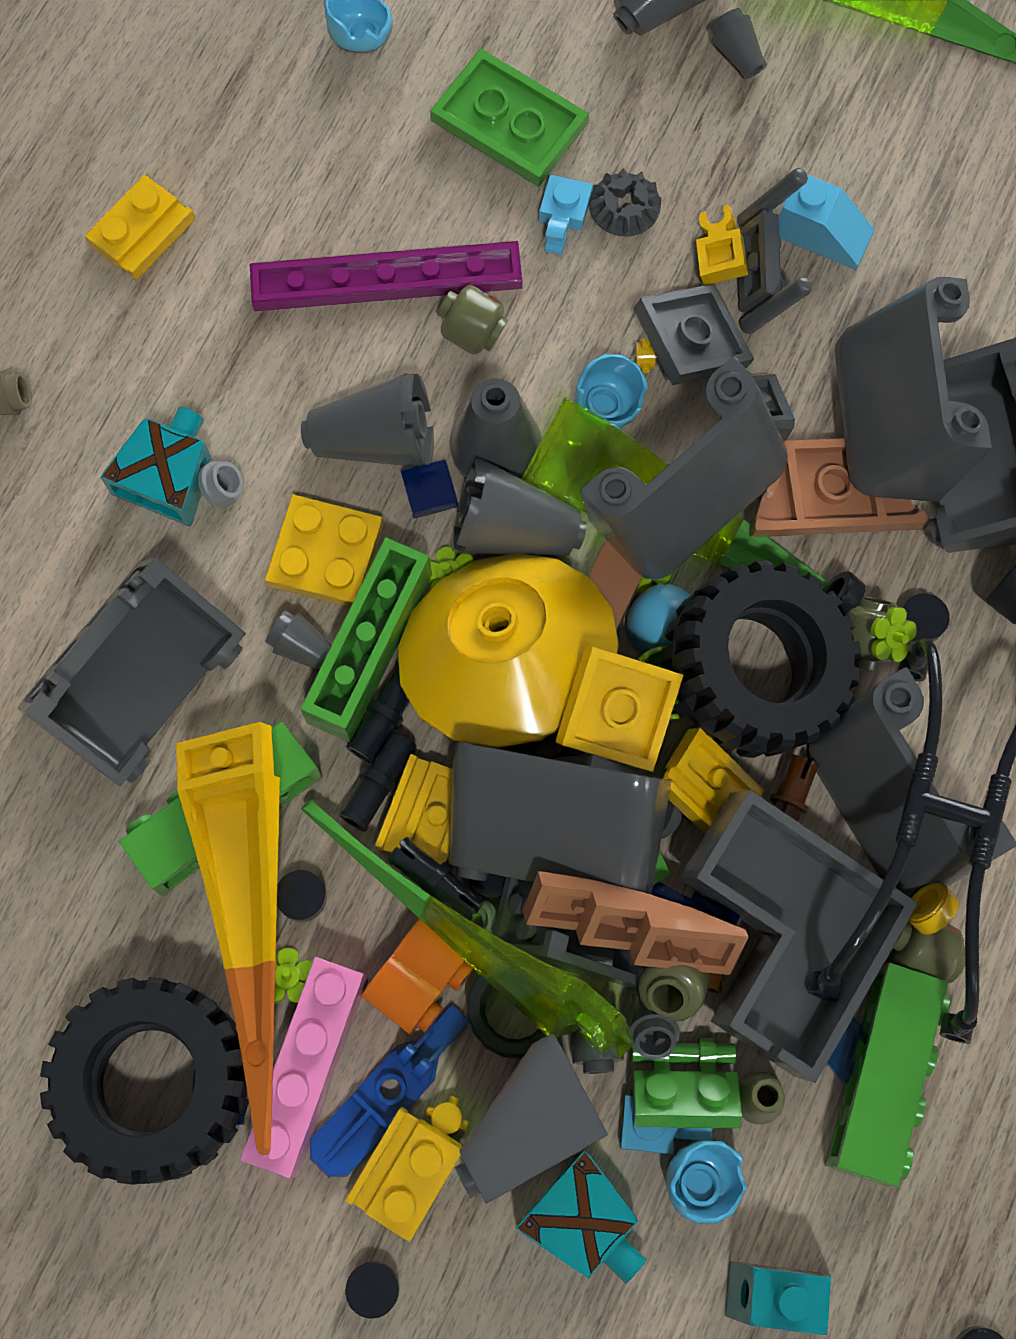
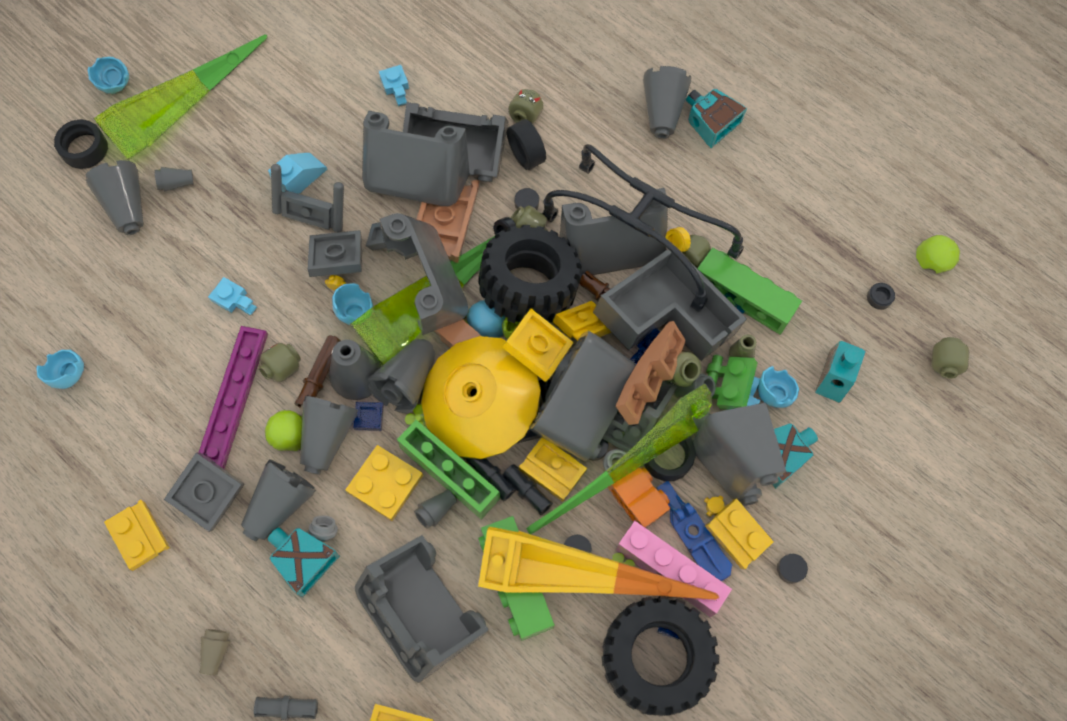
camera: 75 degrees left, 5 degrees down
(226, 290) = (204, 491): none -> dark grey plate
(245, 395) = (274, 500): none -> dark grey cone
(361, 366) = (284, 431): none -> lime hair
(435, 879) = (592, 471): black pin -> none
(461, 384) = (316, 377): none -> reddish brown axle
(509, 117) = (162, 307): bright green plate -> none
(633, 218) = (240, 275): dark grey gear -> none
(721, 250) = (291, 226): yellow plate -> none
(892, 635) = (536, 211): lime plant -> none

